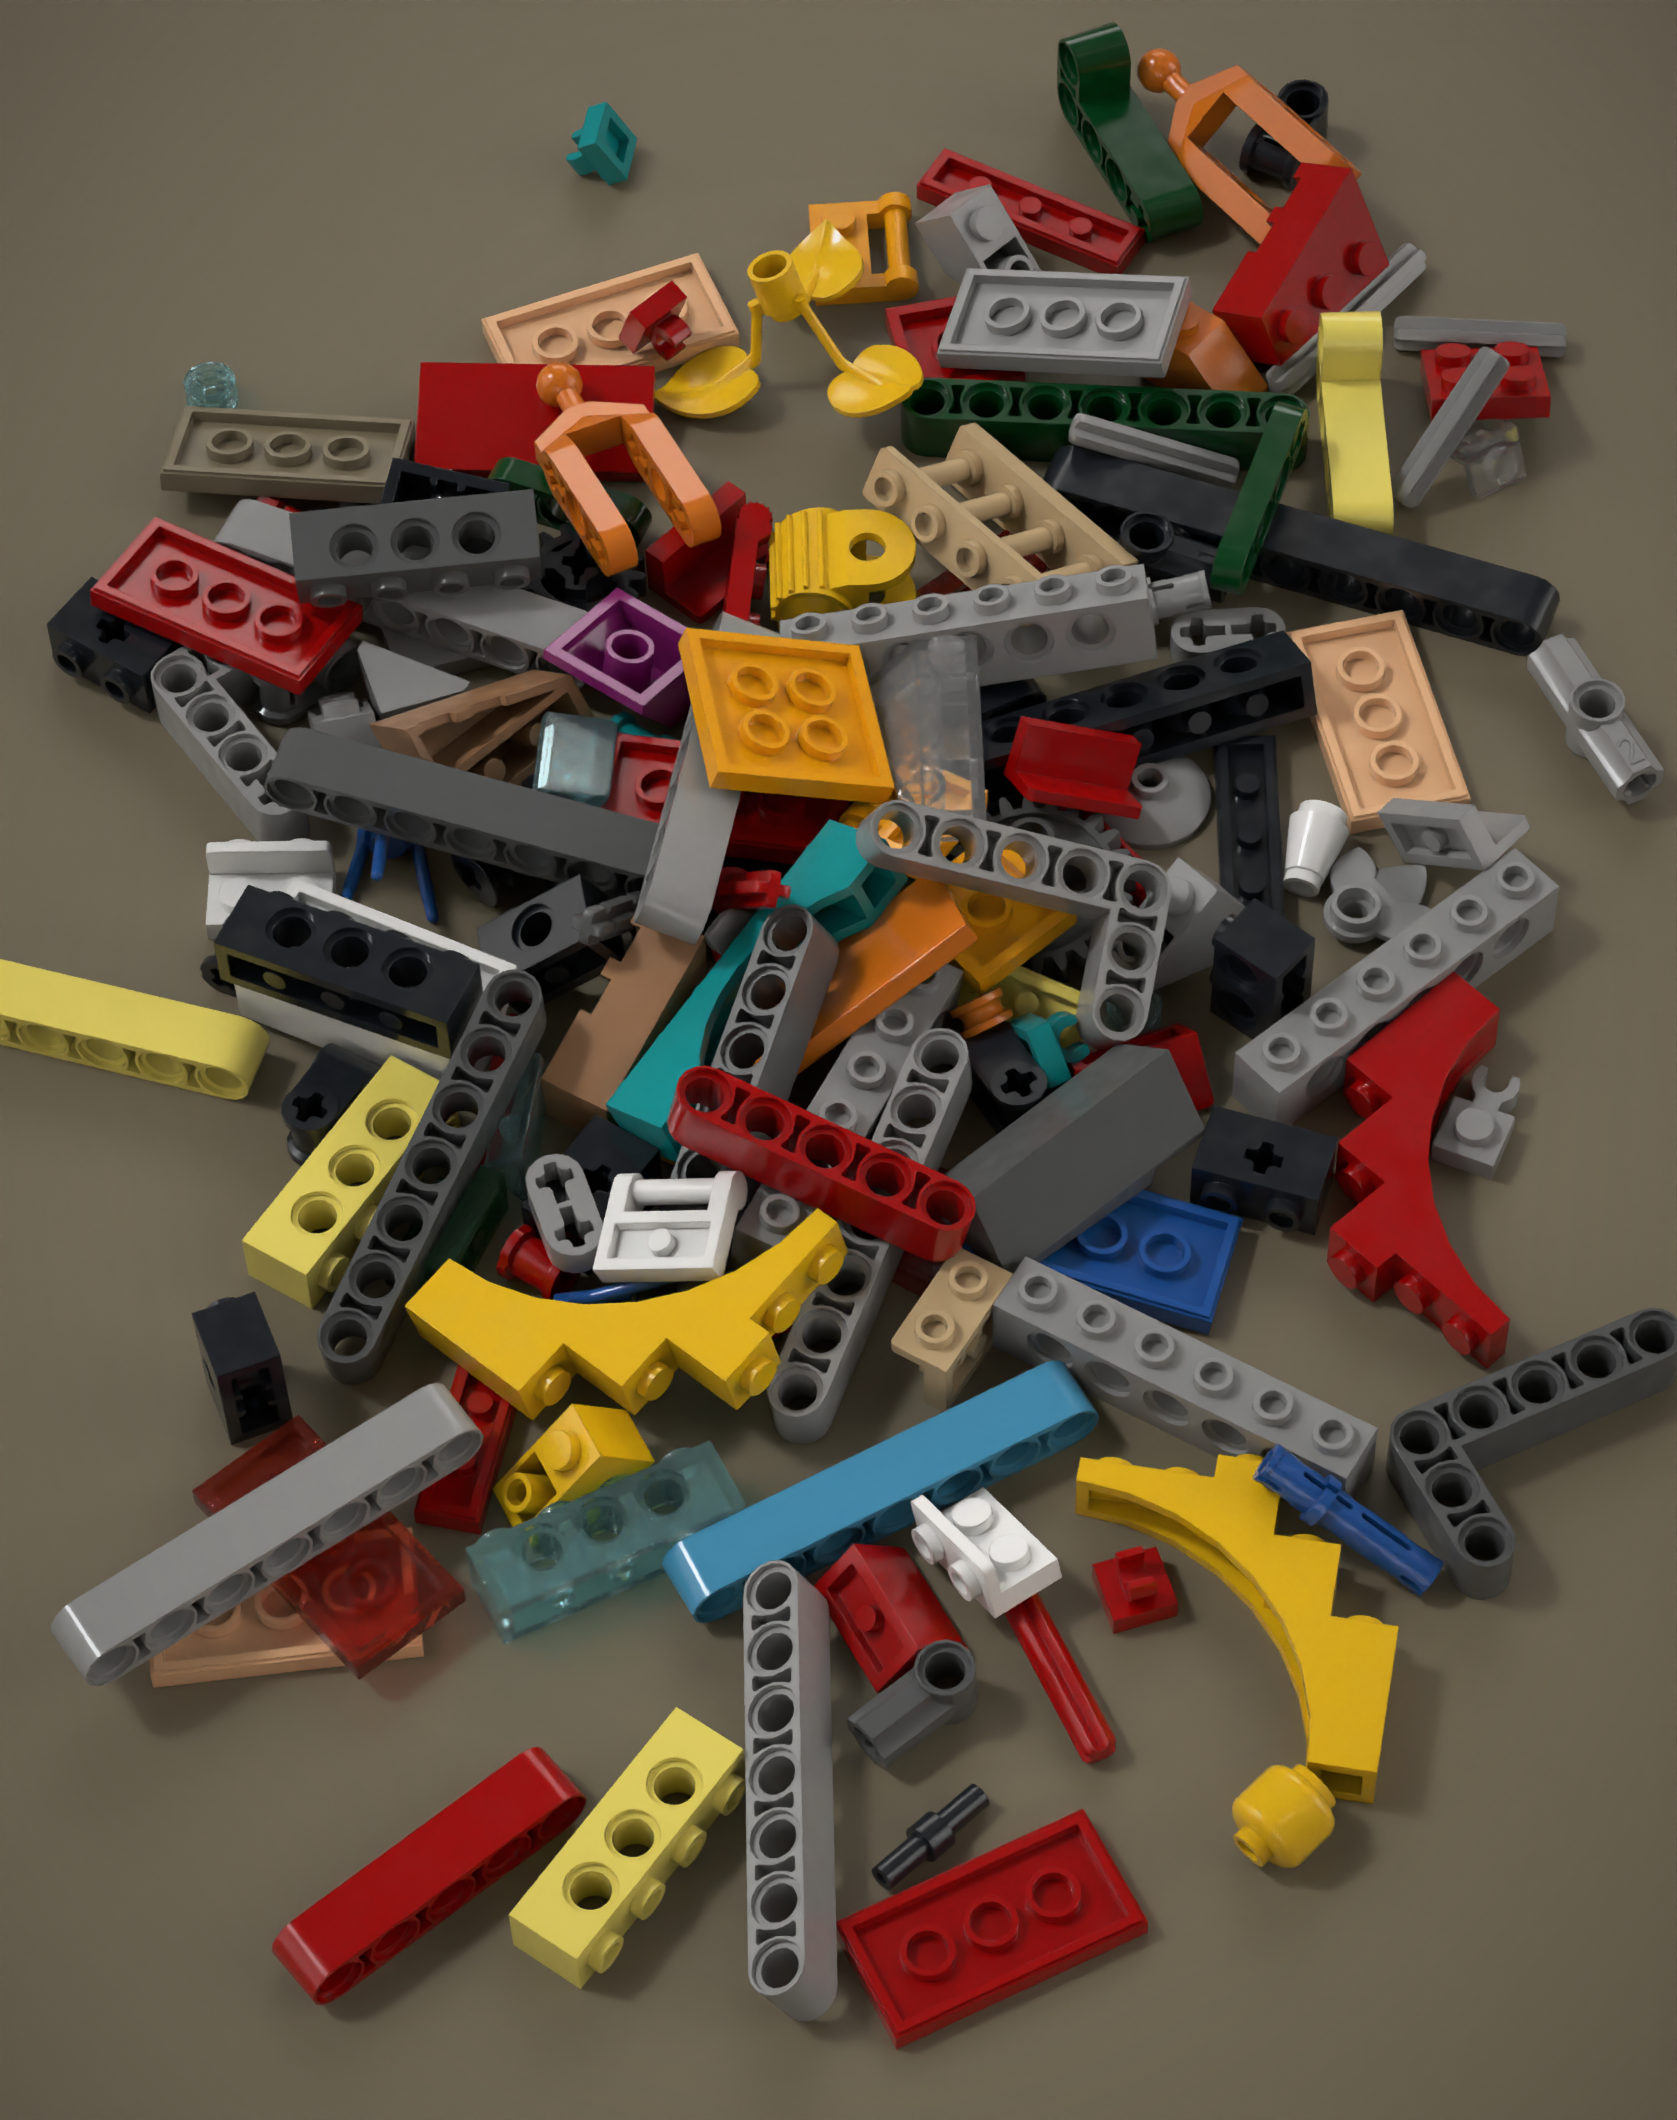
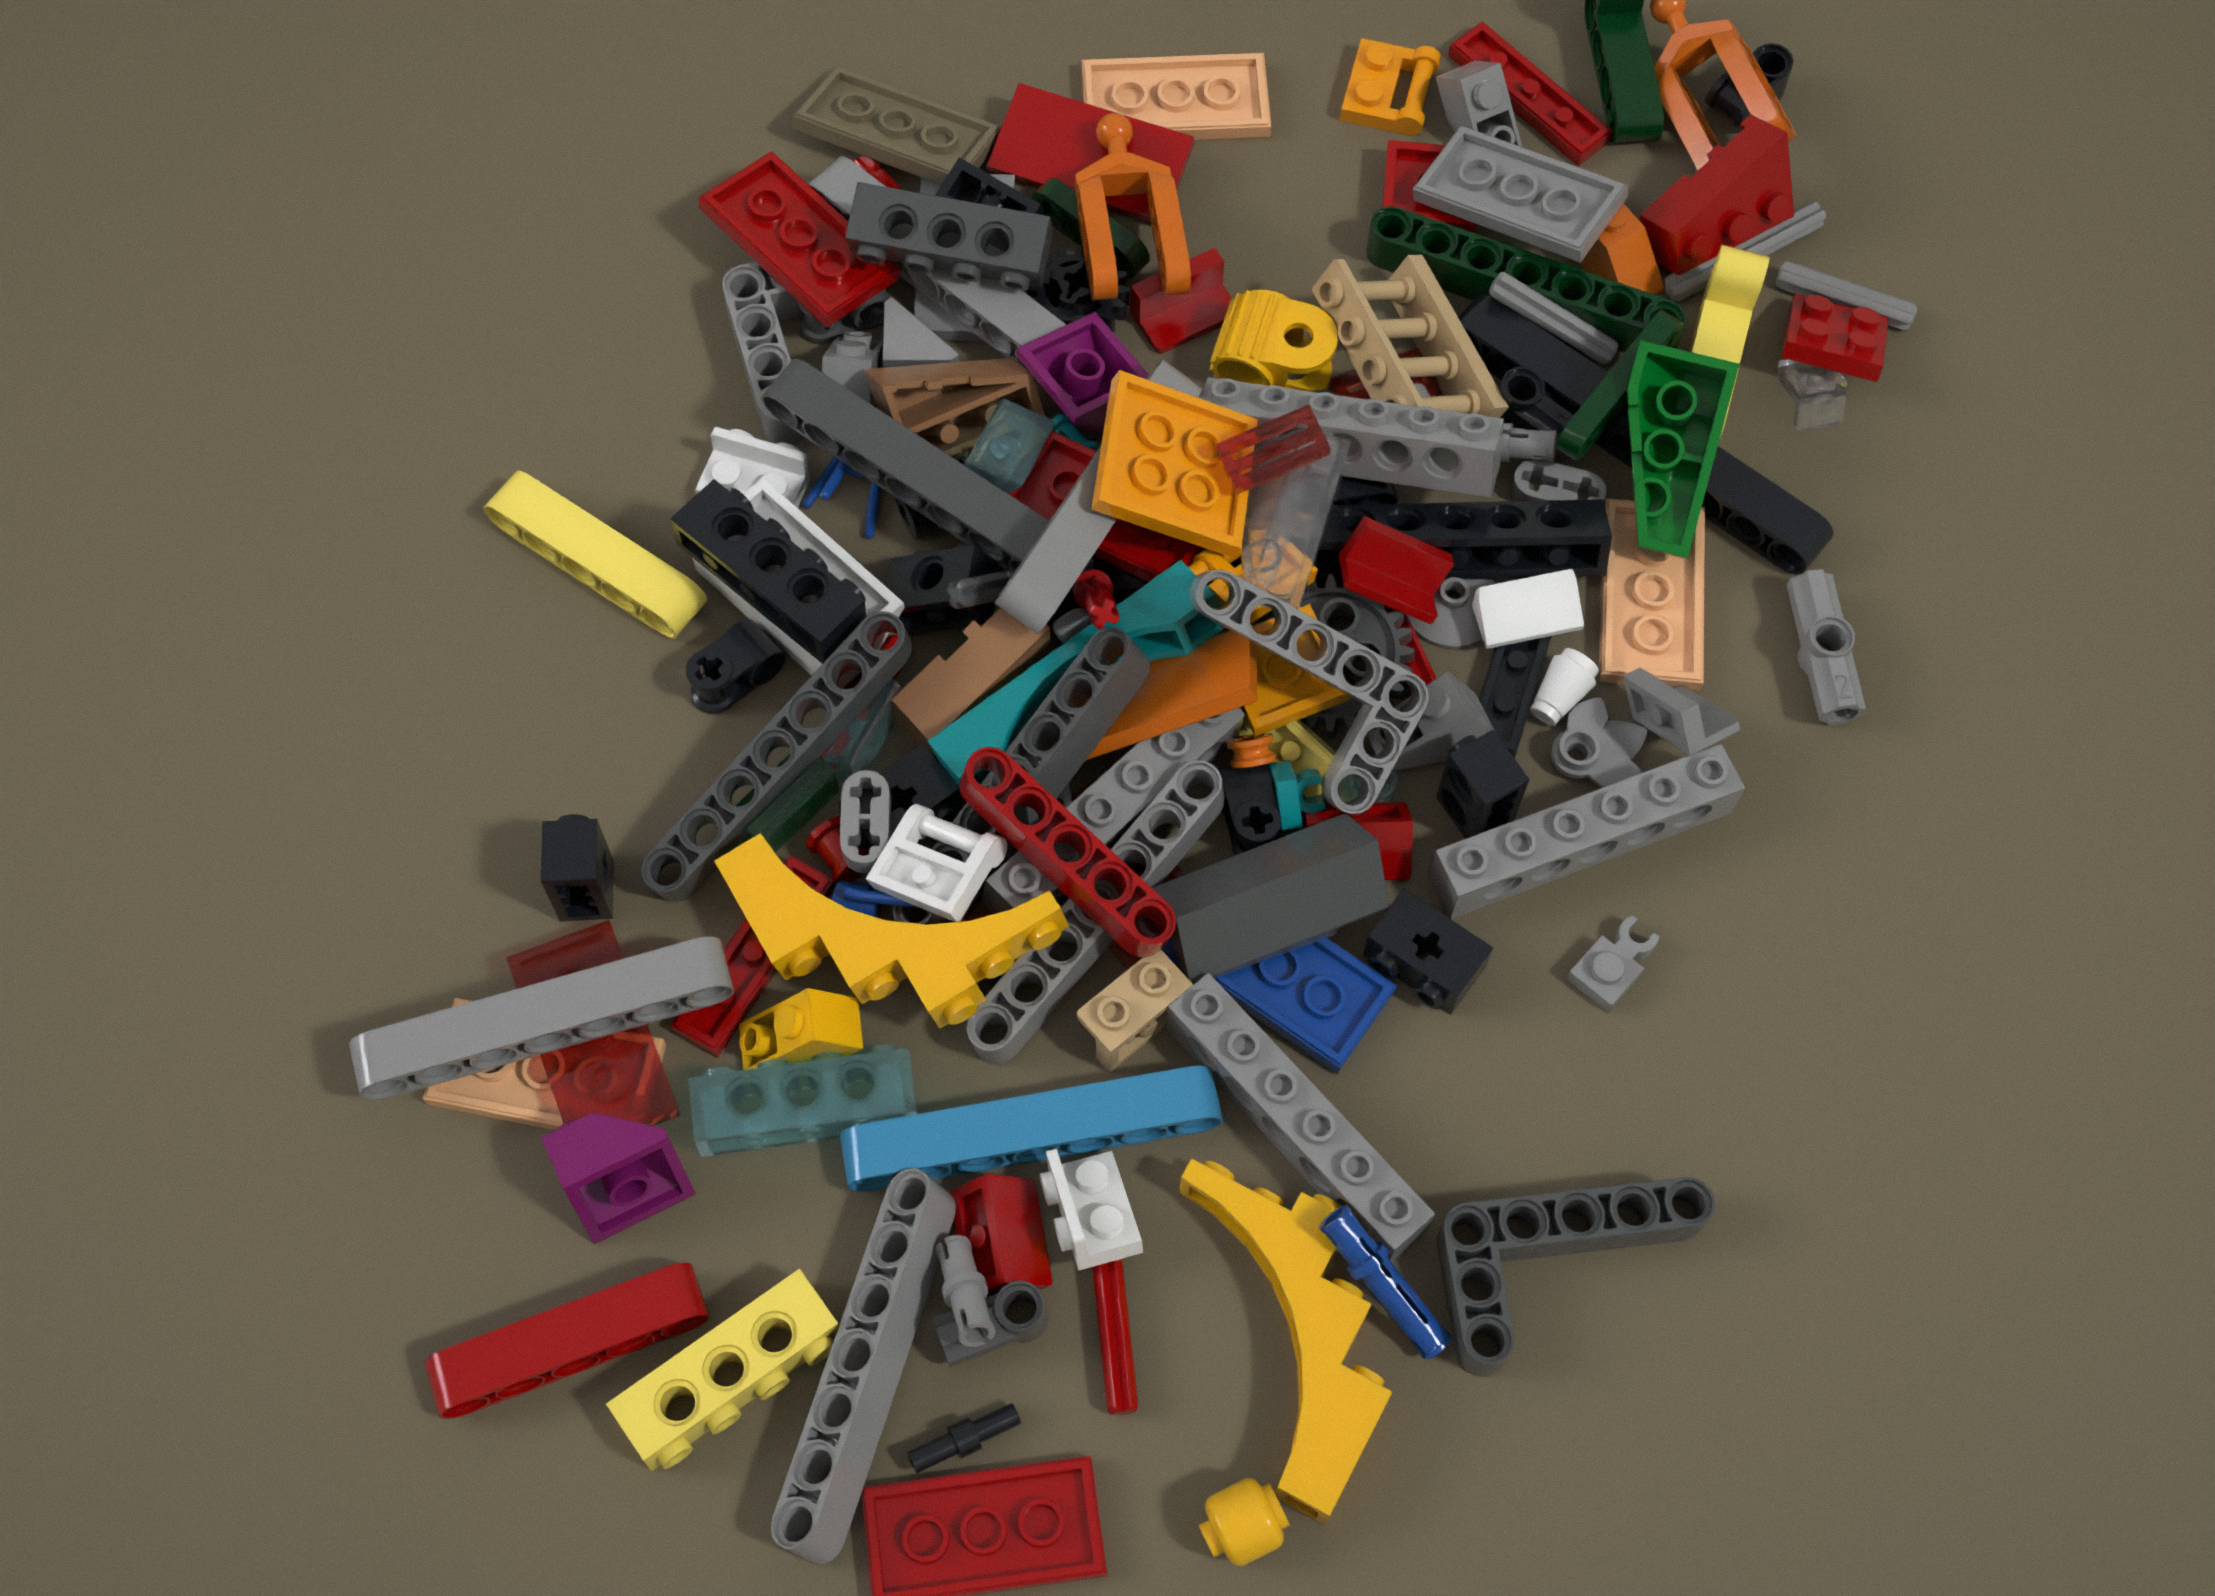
camera: 15 degrees right, 10 degrees up
(107, 649) = (701, 244): black brick -> none
(208, 376) = (862, 46): clear light blue bush -> none
(318, 1196) = (693, 738): light yellow brick -> none
(421, 1672) = (616, 1171): none -> magenta slope
(658, 322) = (1209, 102): red tile -> none
(745, 567) = (1202, 325): red hinge -> none
(784, 285) = (1345, 95): yellow plant -> none
(855, 701) = (1277, 467): none -> clear red tile
(876, 1670) = (965, 1291): none -> light grey pin
(1134, 1589) = (1200, 1277): red tile -> none
(1242, 772) = (1528, 608): none -> white slope
(1342, 528) = (1675, 430): none -> green wedge
(1395, 1231) = (1514, 1039): red arch -> none
(1449, 427) = (1793, 367): light grey axle -> none

